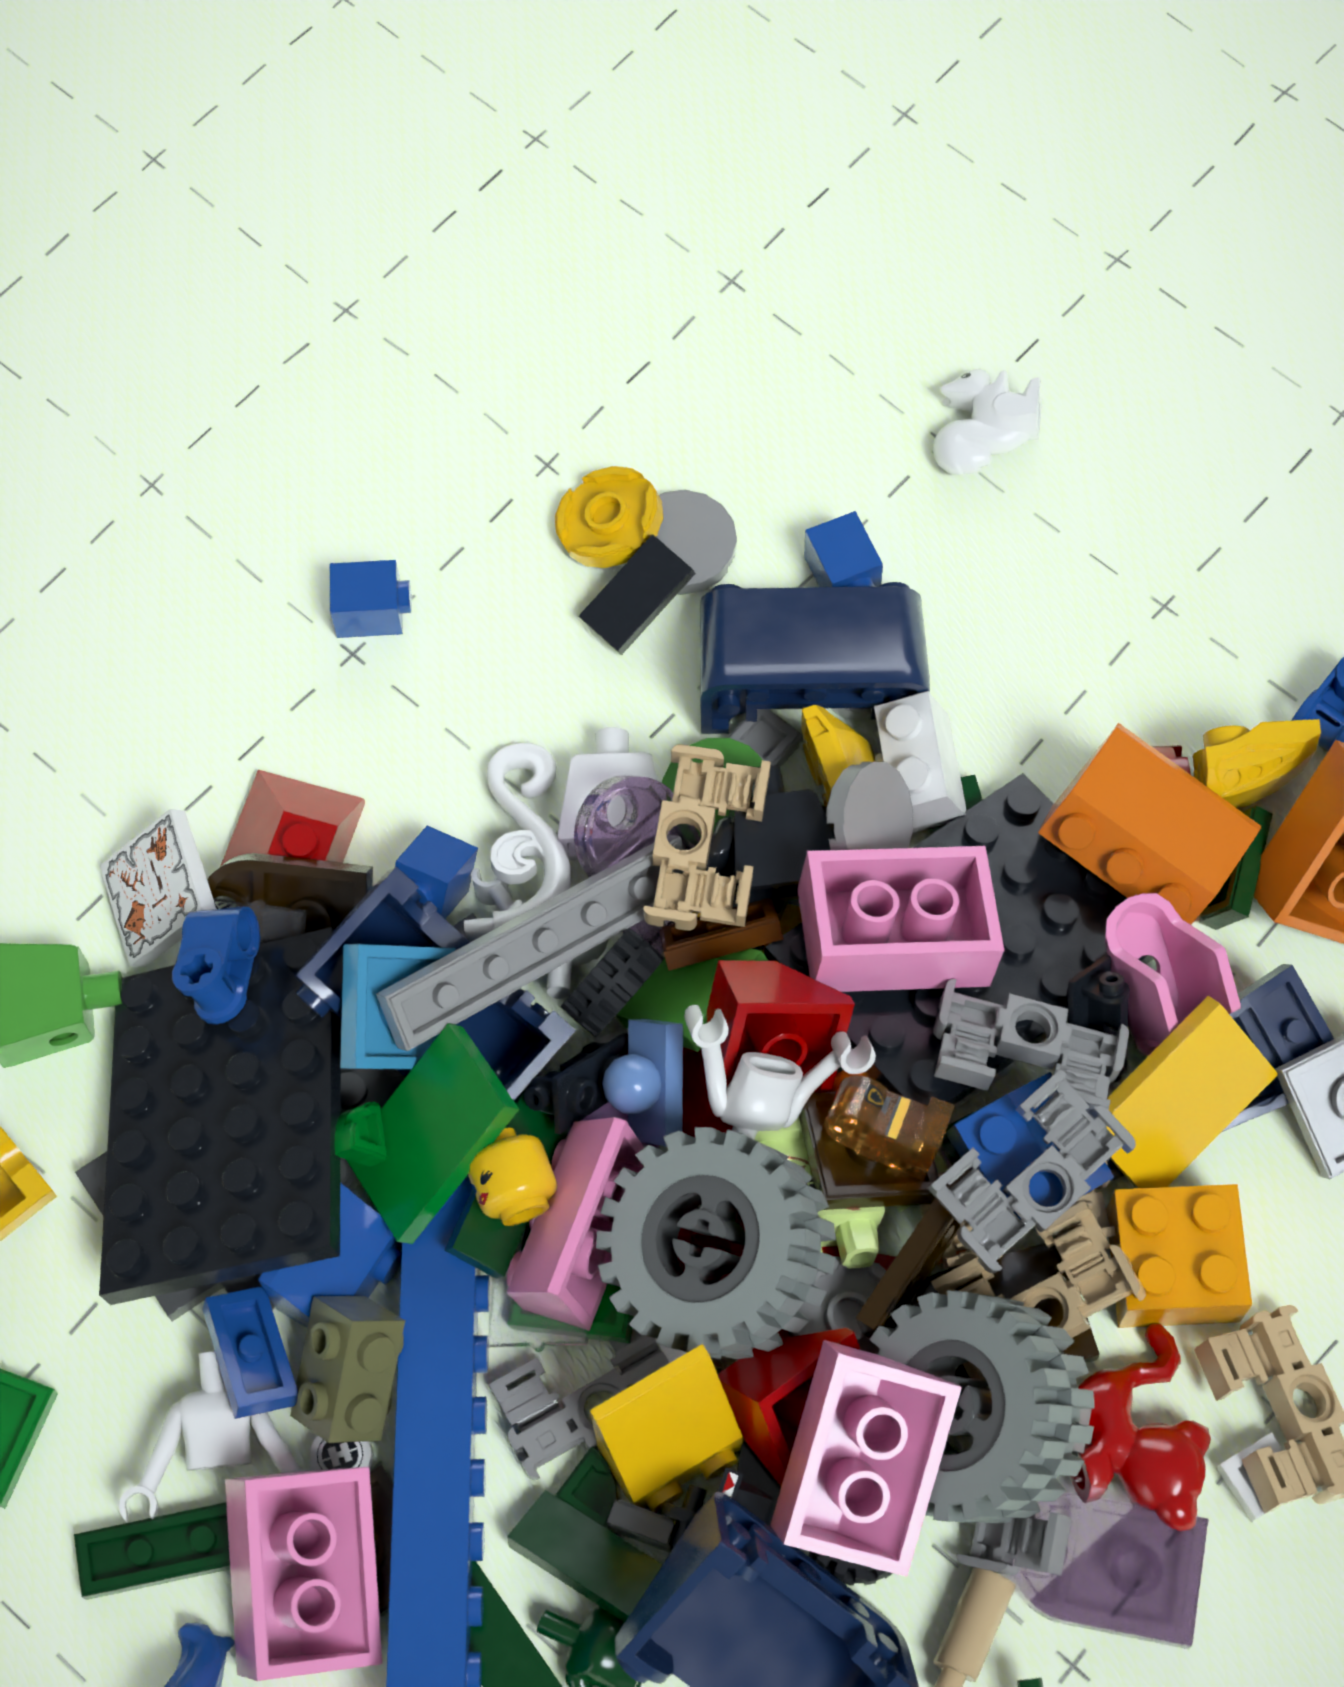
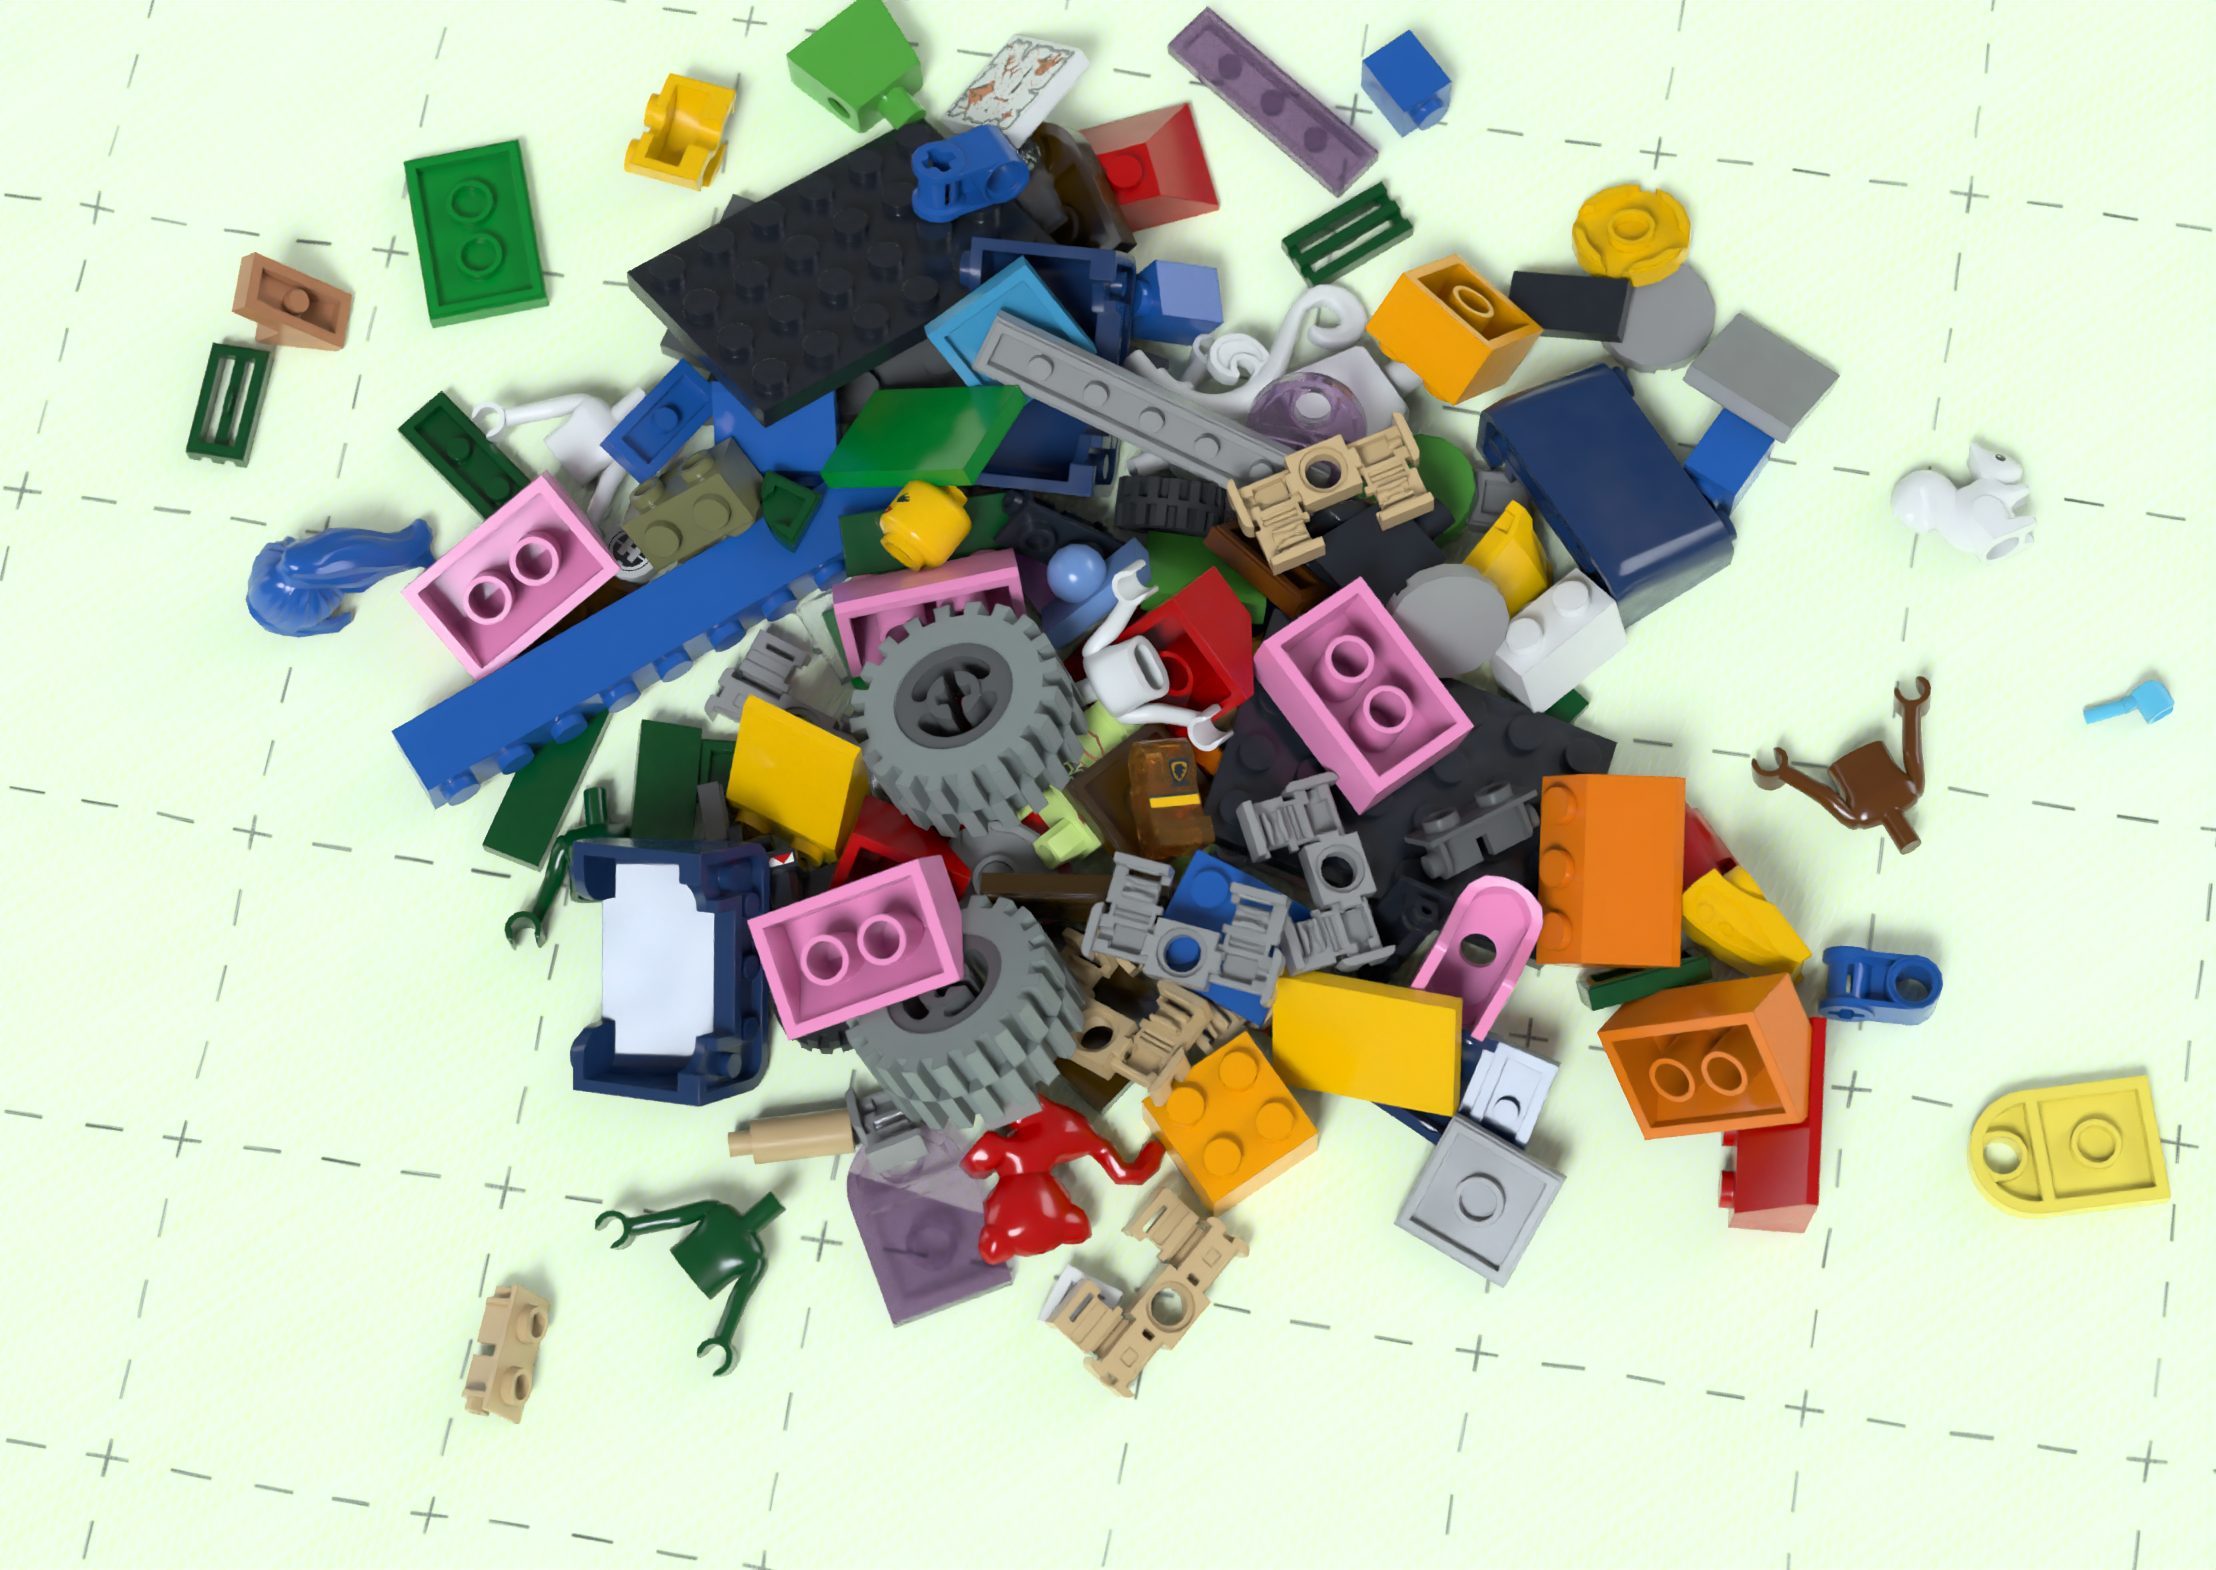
camera: 60 degrees right, 5 degrees up
(304, 707) = (1273, 102): none -> clear purple tile
(361, 1135) = (888, 384): green tile -> none
(408, 1290) = (788, 509): none -> dark green tile
(461, 678) = (1388, 211): none -> dark green tile
(610, 680) = (1453, 329): none -> light orange brick
(794, 494) = (1761, 378): none -> light grey tile
(1048, 887) = (1452, 833): none -> dark grey hinge
(1170, 615) = (1868, 778): none -> reddish brown piece
(1219, 394) = (2149, 698): none -> medium azure hand

